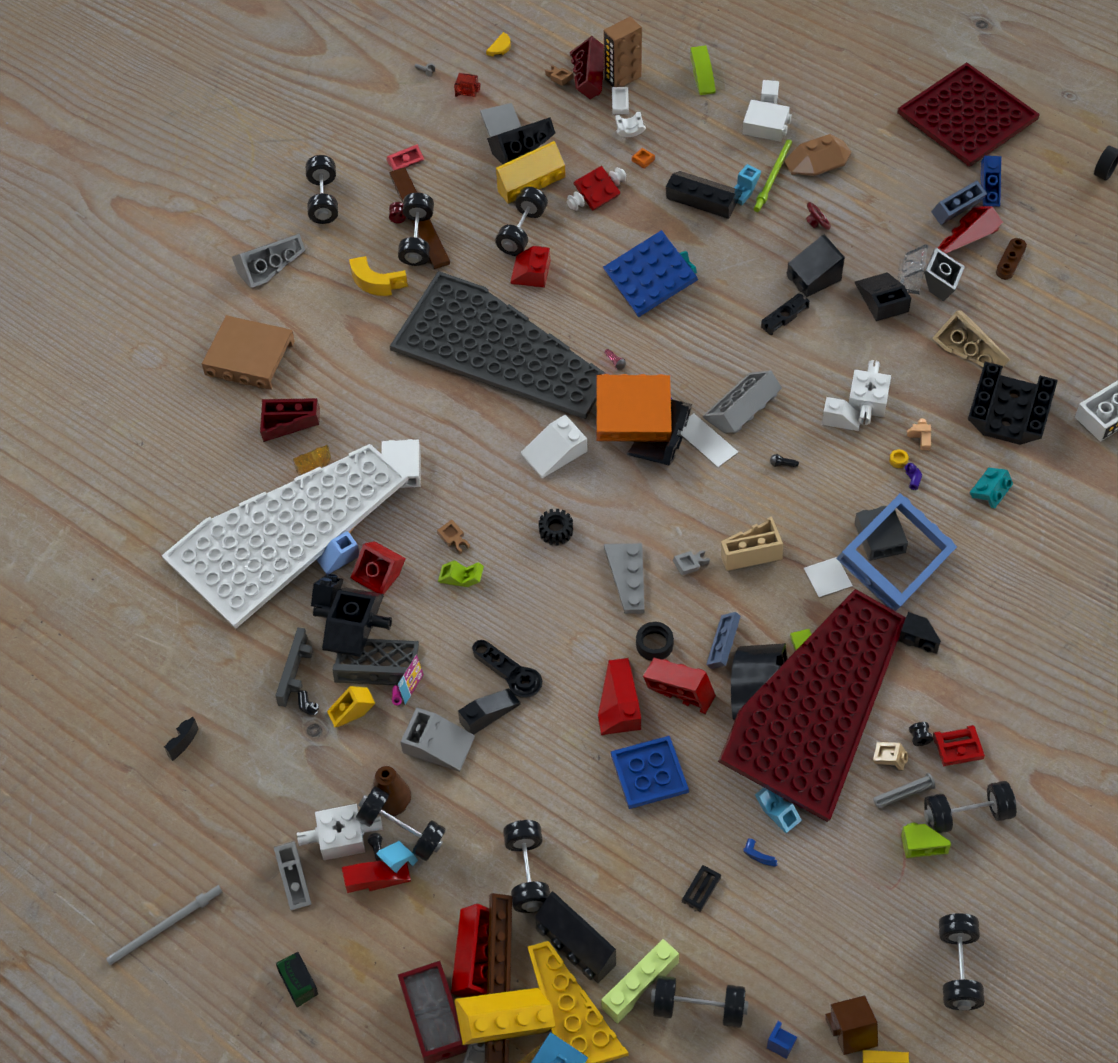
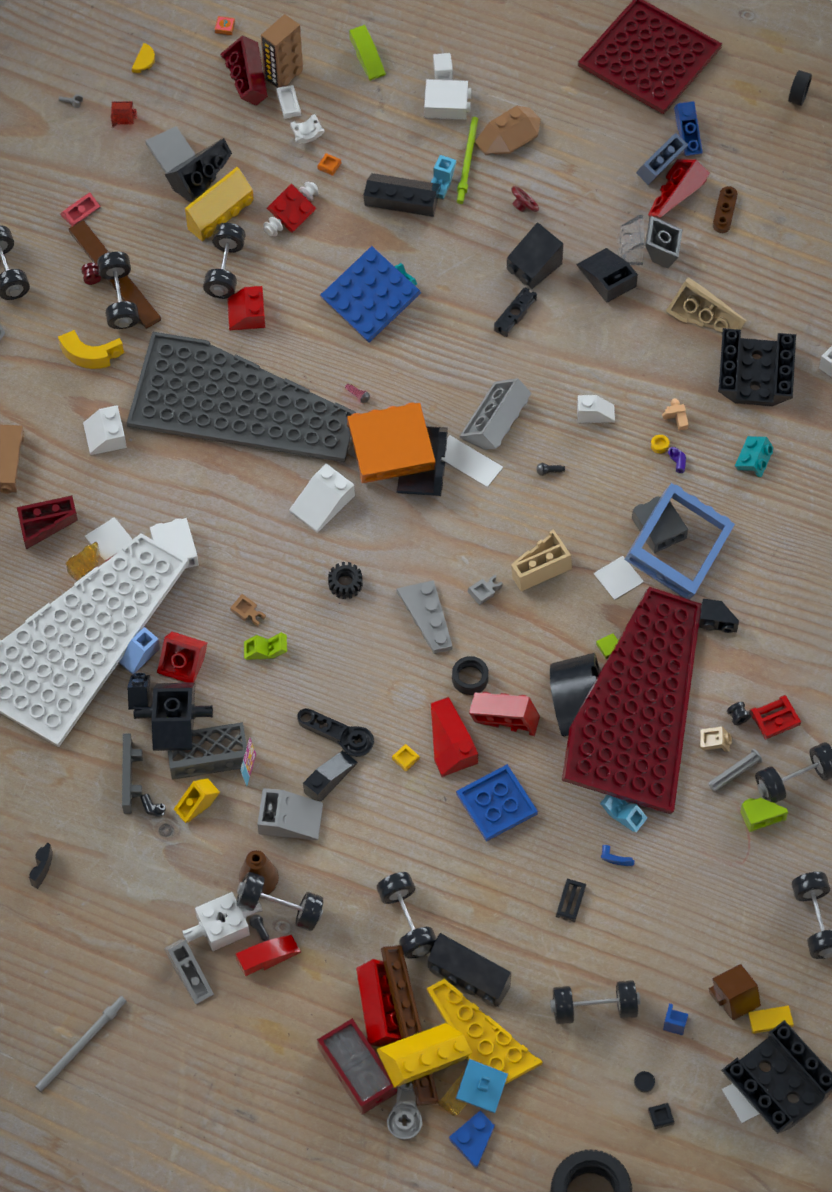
camera: 15 degrees left, 5 degrees up
(297, 979) = (222, 1064): piece -> none
(342, 444) = (110, 538): none -> white sticker
(368, 349) = (104, 431): none -> white slope
(396, 695) = (236, 777): dark pink arm -> none
(396, 856) = (284, 932): medium azure slope -> none
(559, 76) = (217, 85): medium nougat plate -> none
(569, 708) = (405, 757): none -> yellow tile
(580, 29) = (224, 25): none -> orange tile
(624, 995) = (529, 1006): yellowish green arch -> none
(723, 640) = (535, 661): sand blue plate -> none
(869, 392) = (617, 381): white brick -> none

